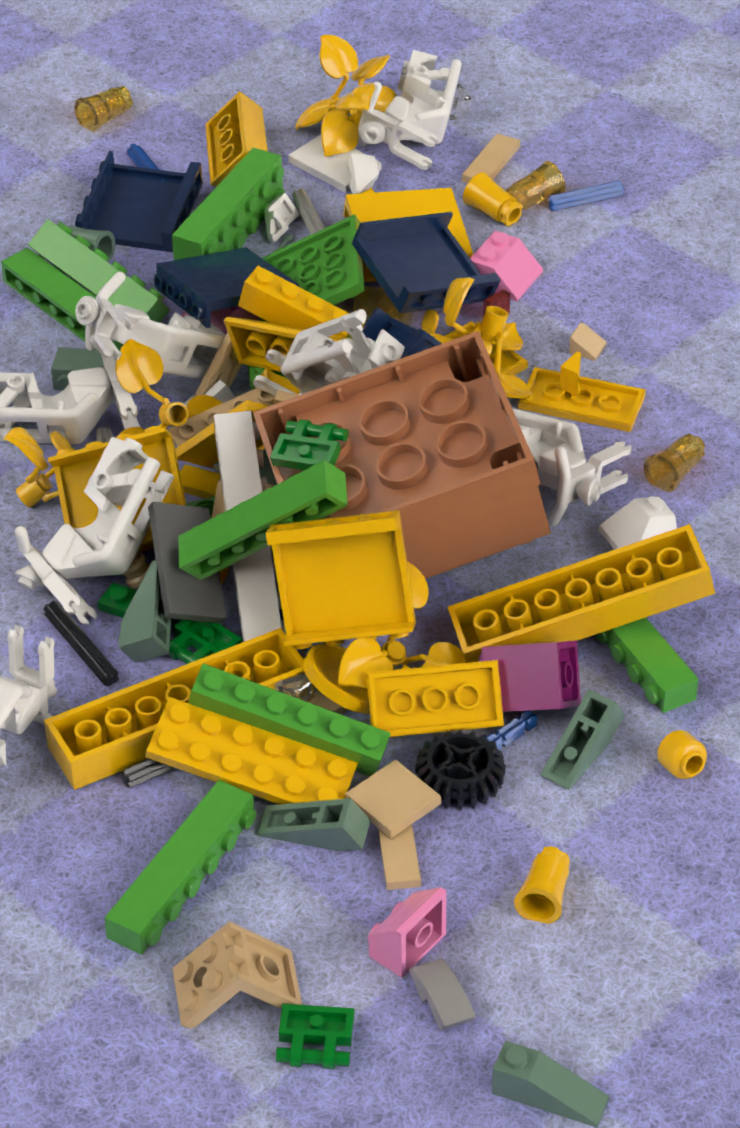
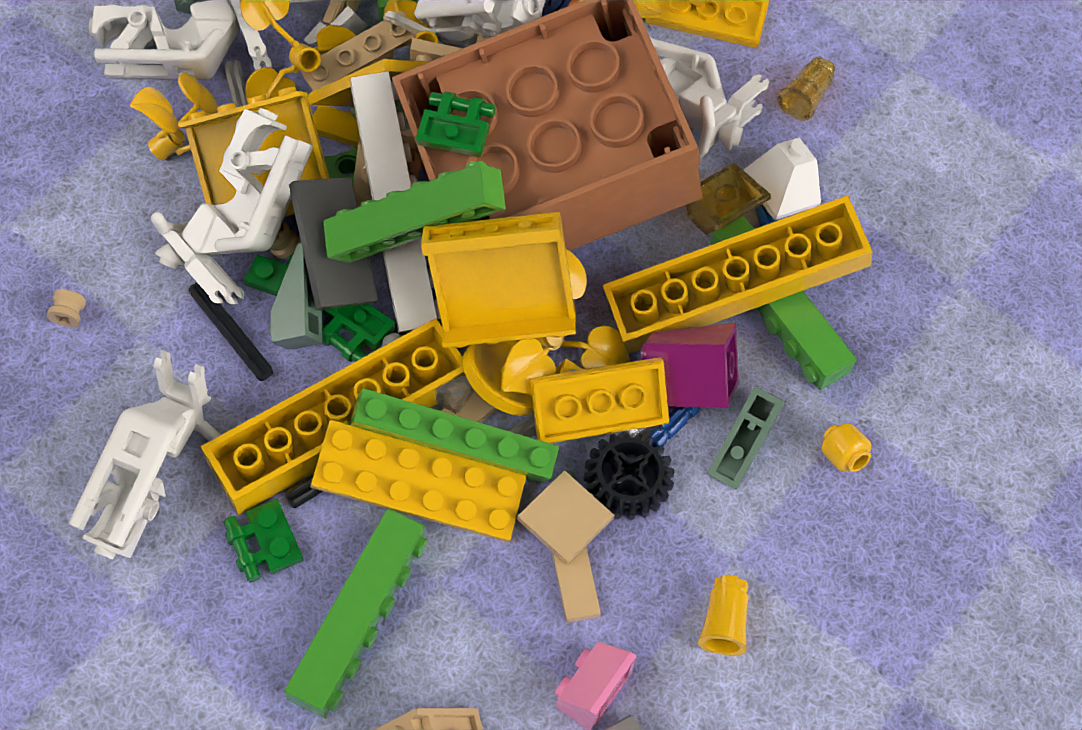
camera: 10 degrees left, 20 degrees up
(106, 807) = (274, 538): none -> green plate
(321, 824) = (489, 552): sand green slope -> none
(577, 542) = (725, 199): none -> clear yellow slope

